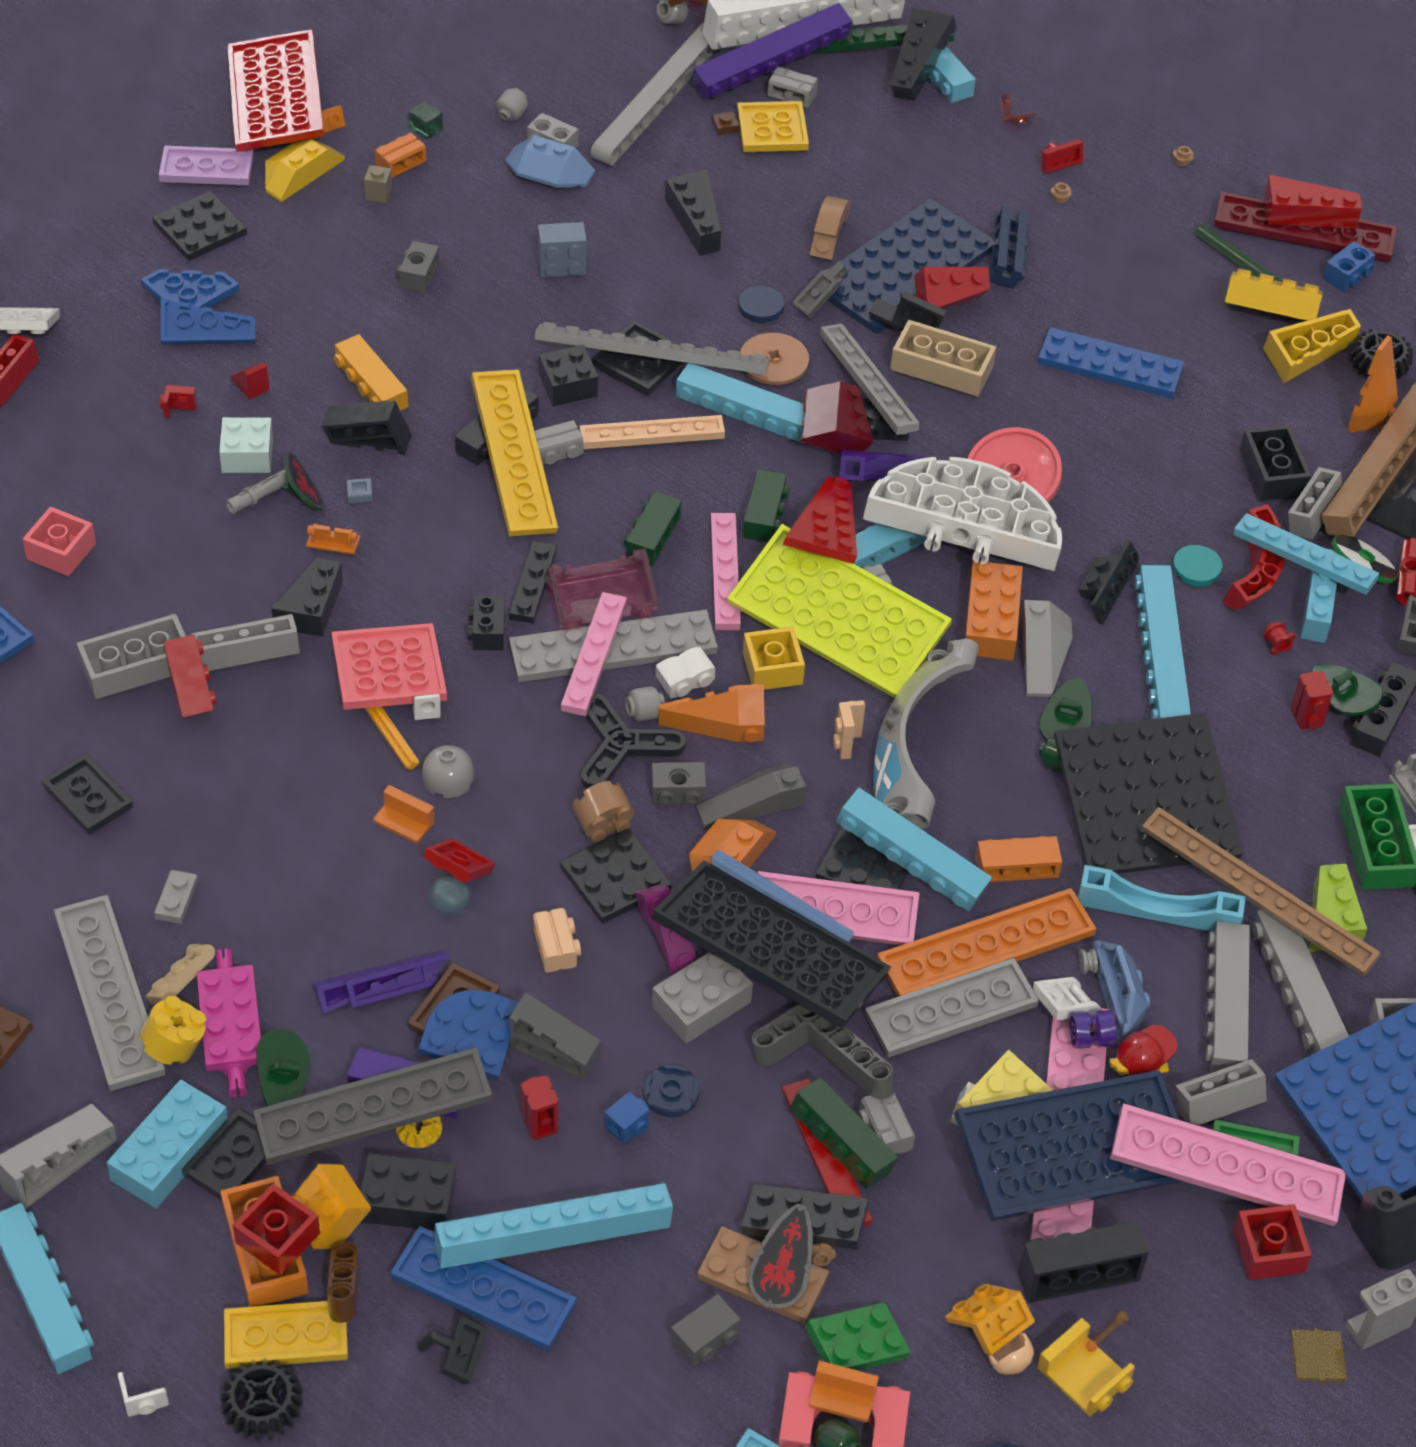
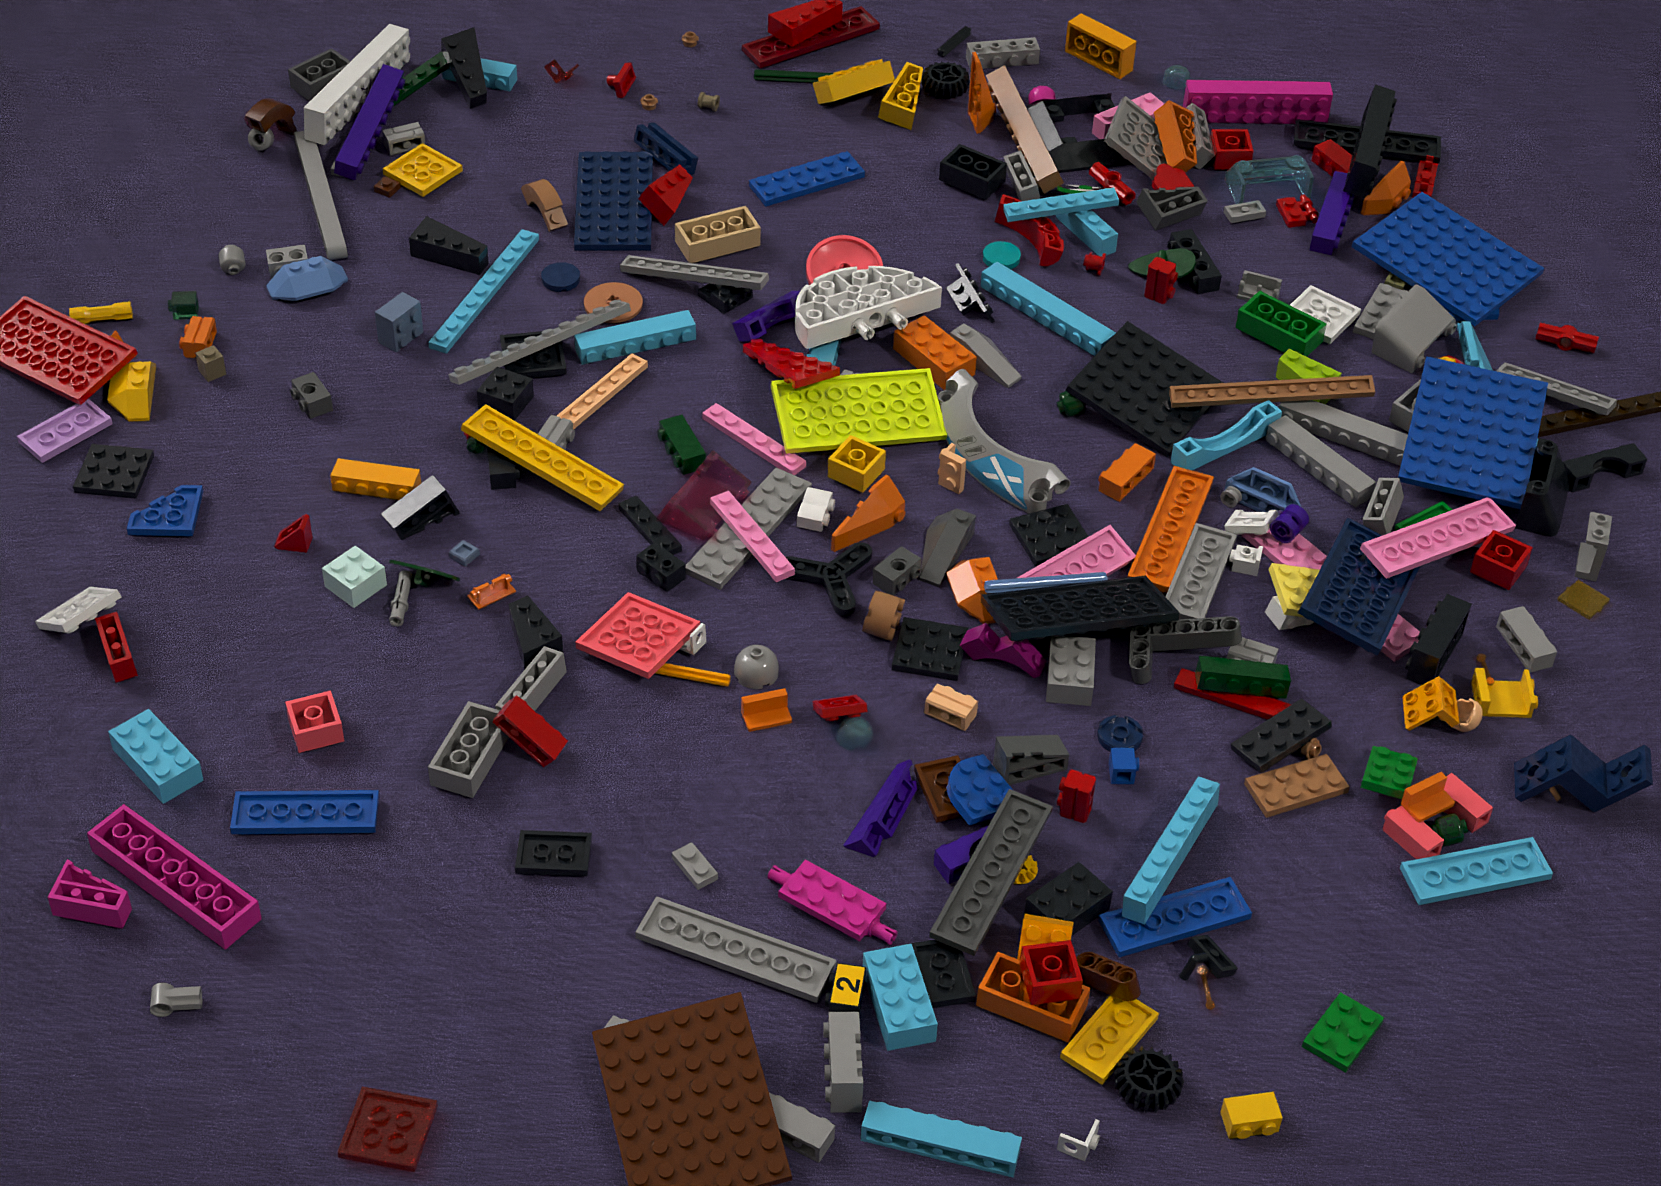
camera: 45 degrees left, 5 degrees down
(134, 1101) = (847, 988): none -> brick
(172, 1031) = (816, 932): yellow brick -> none
(178, 398) = (264, 581): red bracket -> none
(181, 972) = (766, 902): tan plate -> none
(198, 325) = (214, 527): blue wing -> none
(281, 1066) = (903, 902): dark green shield -> none
(369, 90) = (116, 312): none -> yellow axle
(407, 1389) = (1202, 971): none -> clear orange hinge
(643, 703) = (818, 542): light grey head -> none
(681, 271) = (483, 291): none -> medium azure plate
(705, 1330) = (1314, 835): dark grey brick -> none
(765, 505) = (729, 386): dark green brick -> none
(783, 1260) = (1309, 762): shield -> none
(820, 290) = (591, 244): dark grey hinge -> none
(835, 418) = (709, 305): dark red wedge -> none
(909, 308) = (665, 220): black bracket -> none
(913, 849) = (1075, 505): medium azure brick -> none
(1016, 1031) = (1246, 559): none -> white brick
(1067, 708) = (1041, 381): dark green shield -> none
(1115, 227) = (708, 101): none -> dark tan bush
(1145, 1051) = (1322, 518): red hair -> none
(1189, 1339) = (1526, 639): none -> light grey brick
(1349, 266) = (865, 43): blue brick -> none

